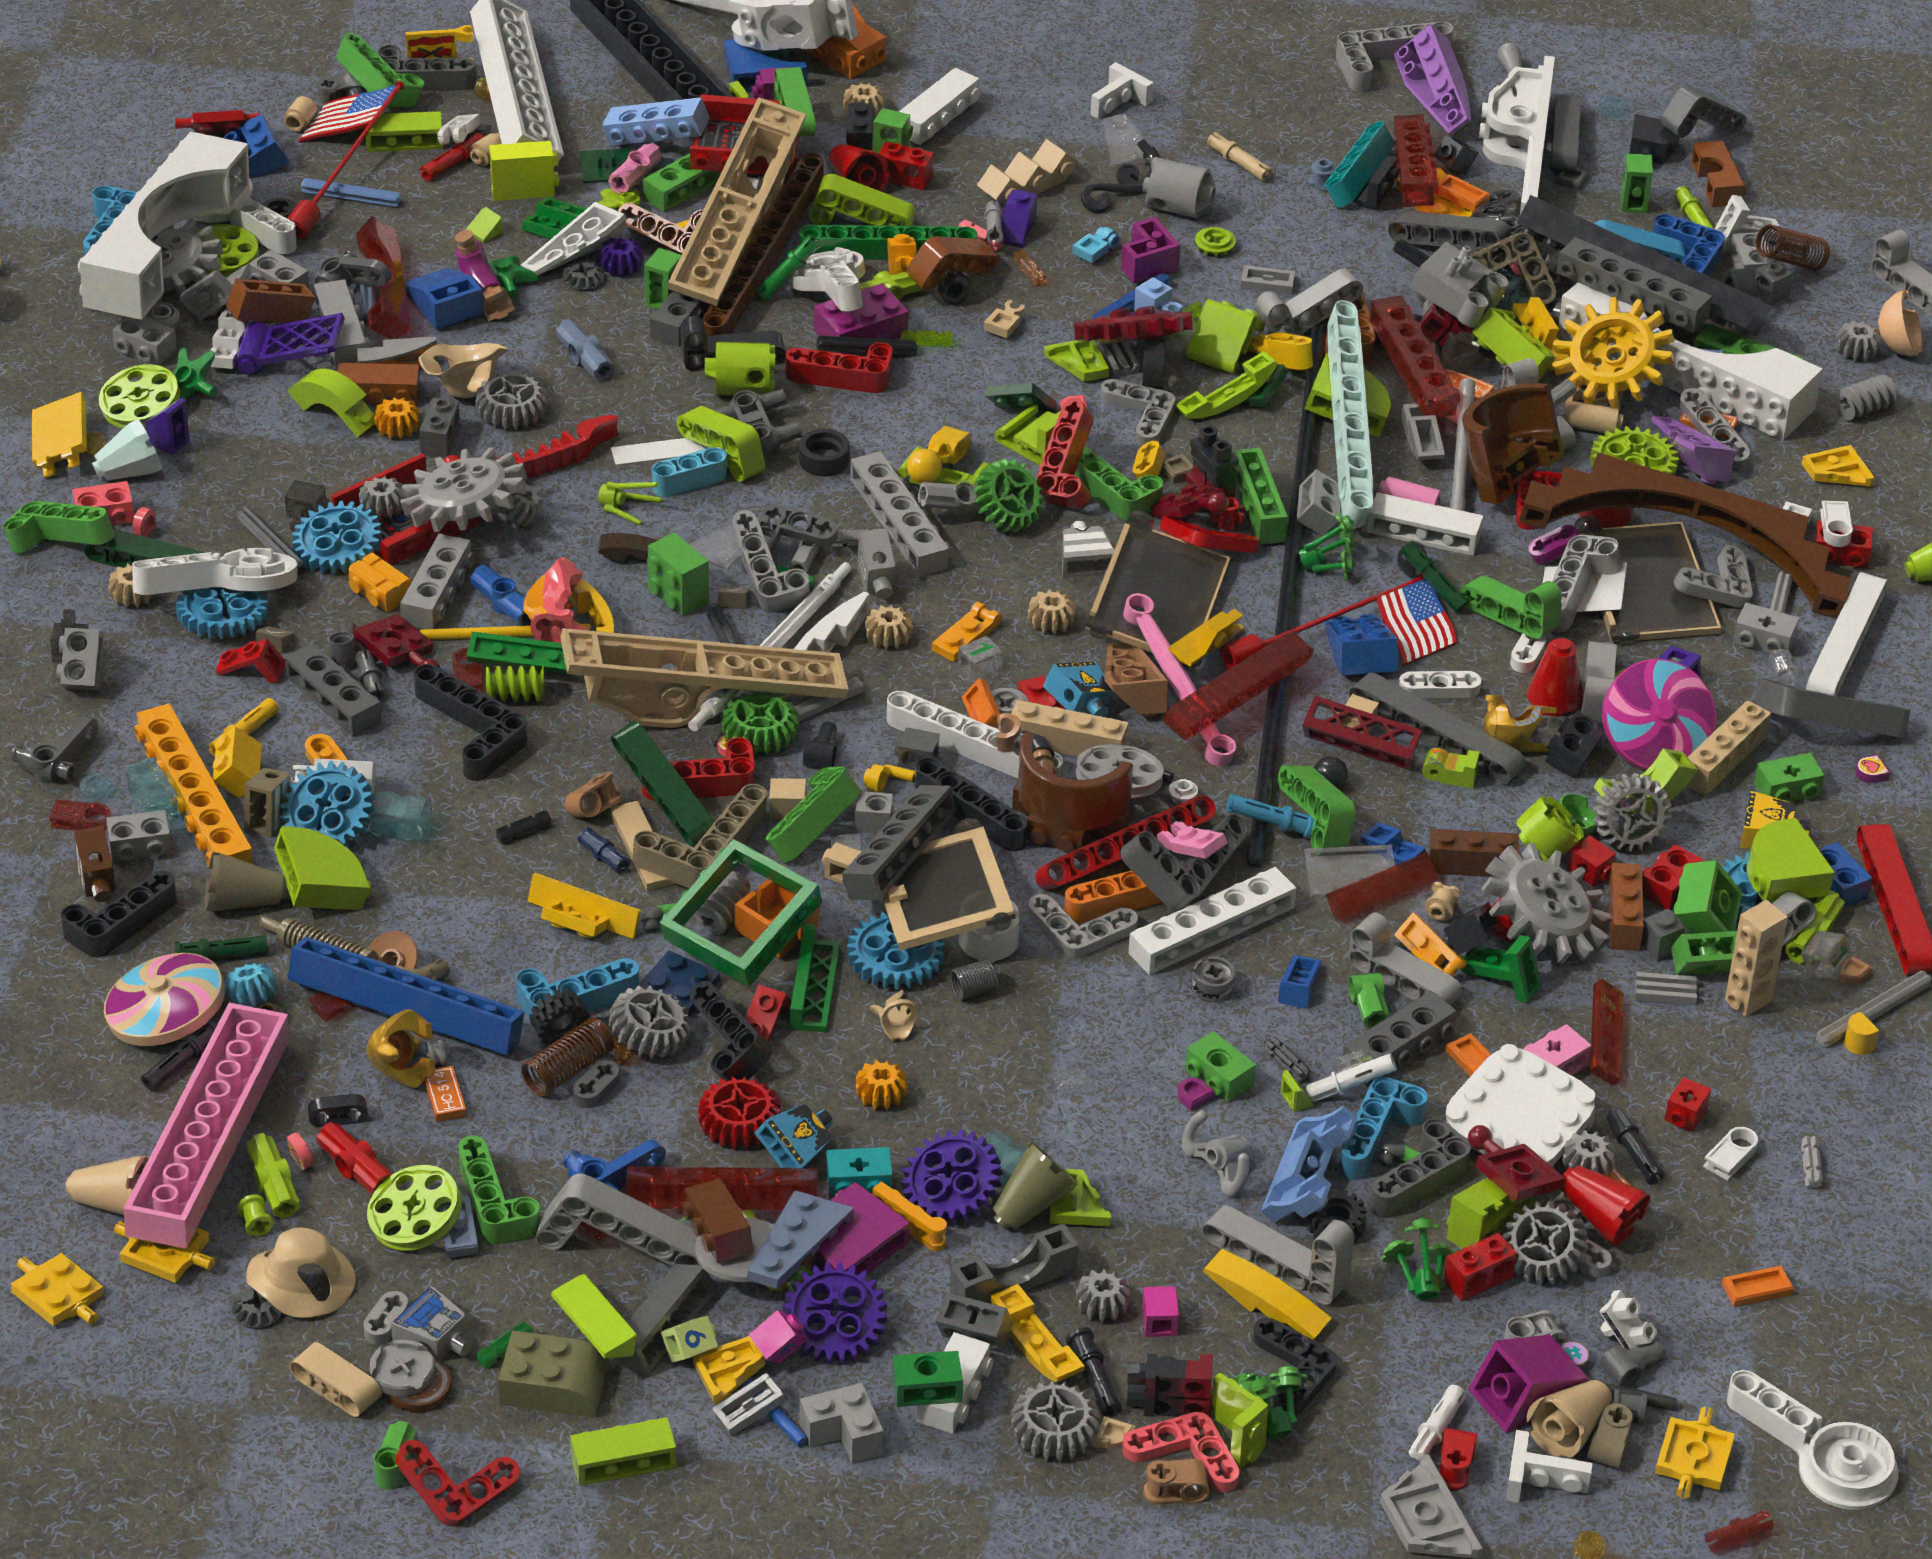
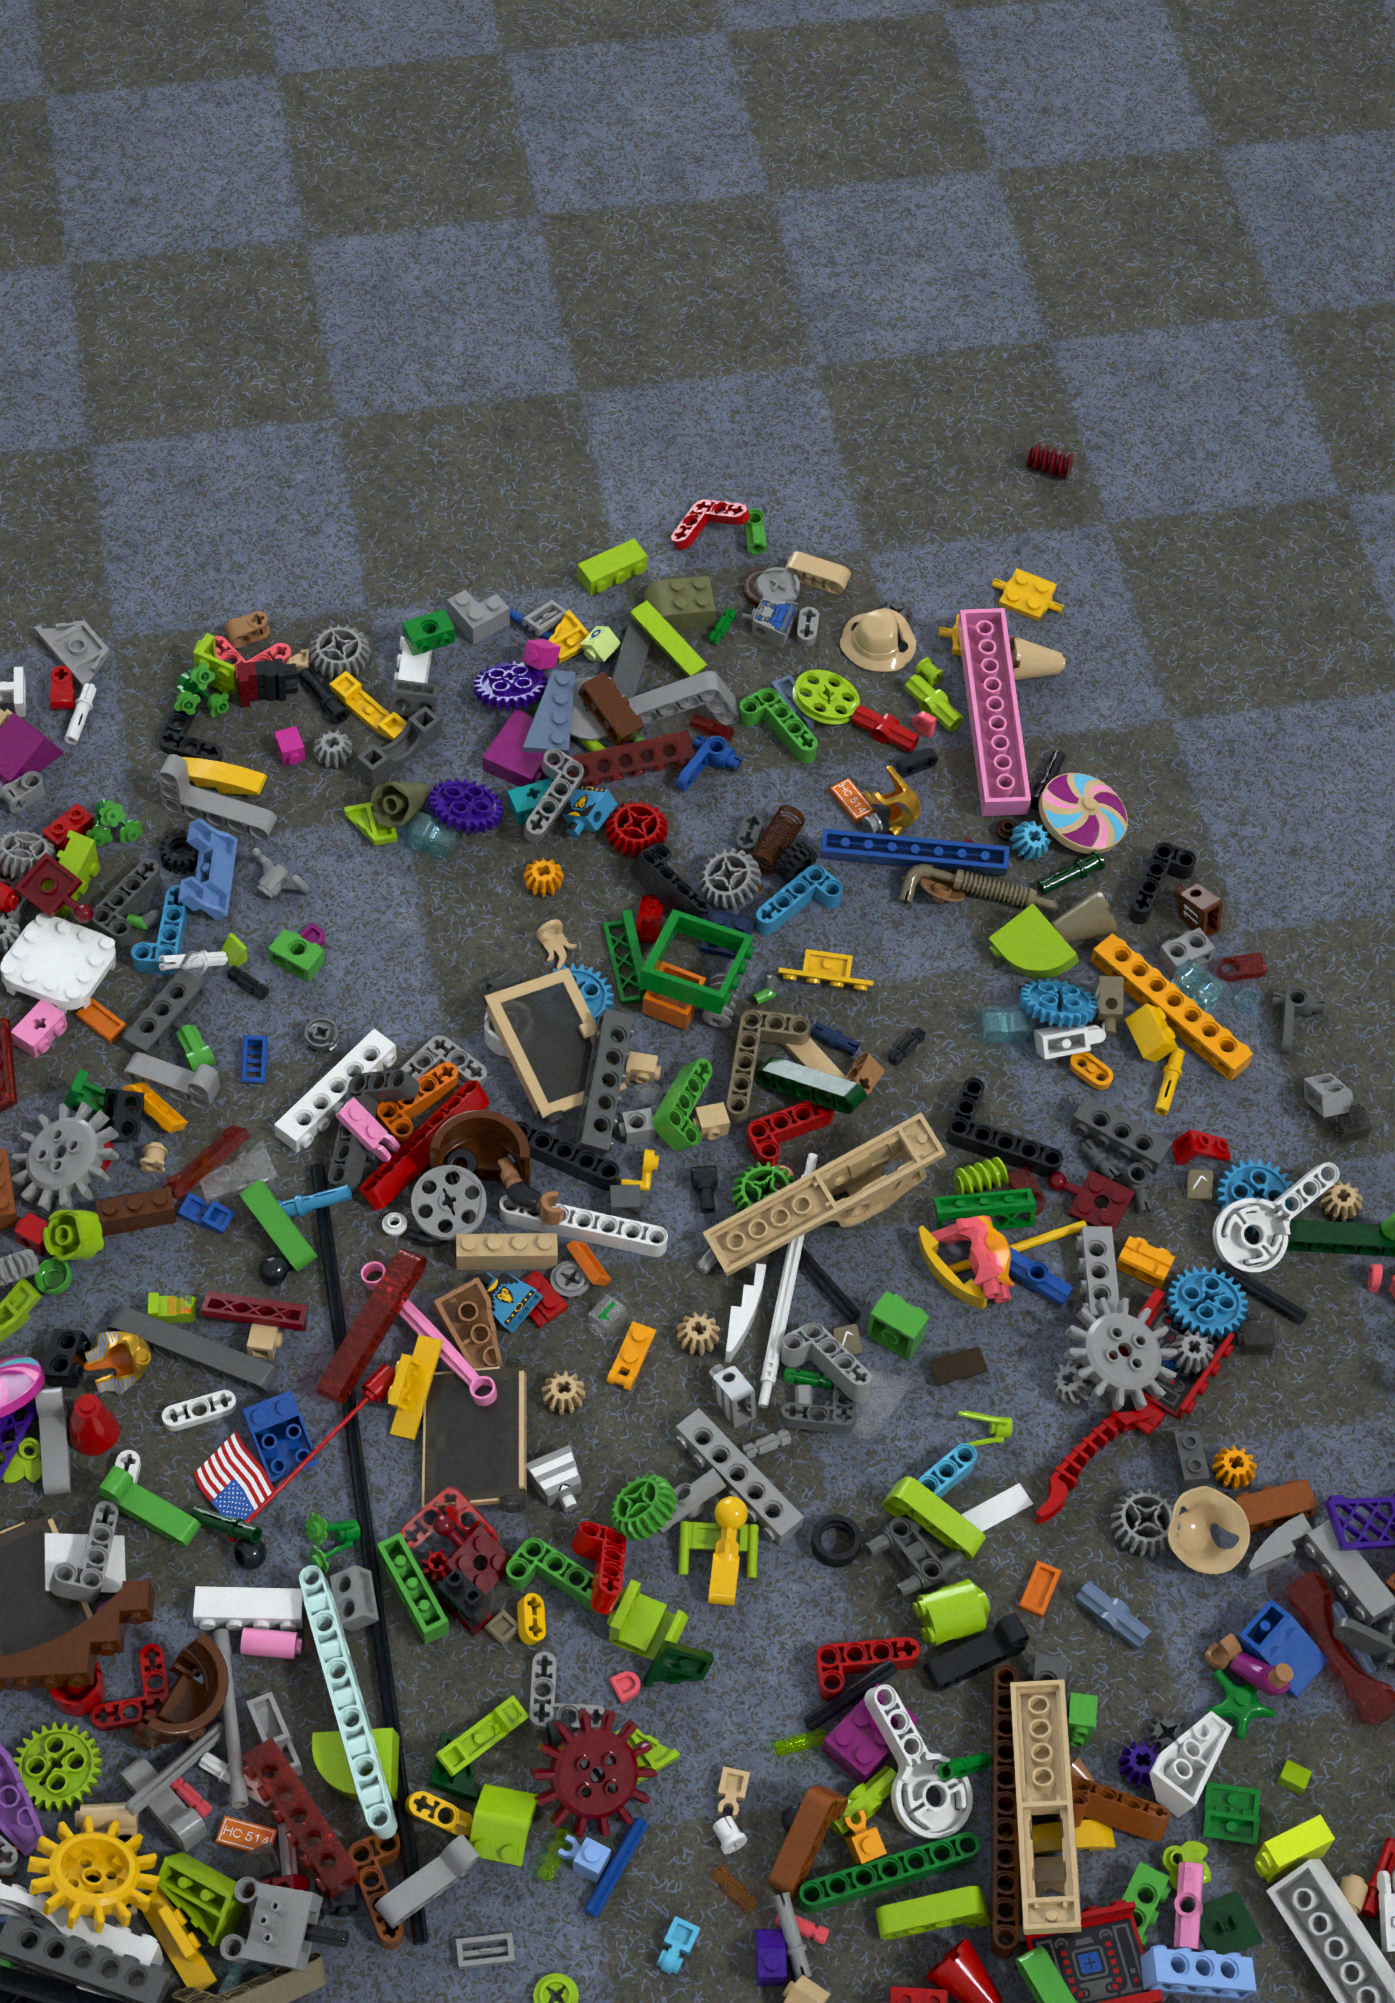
camera: 160 degrees right, 15 degrees up
(336, 392) = (1304, 1460): lime arch -> none
(642, 387) = (1039, 1589): none -> orange tile
(818, 1146) = (550, 798): none -> light grey beam
(922, 1227) = (484, 774): light orange plate -> none
(1024, 295) = (729, 1835): none -> white bush
(1150, 252) = (609, 1934): magenta brick -> none

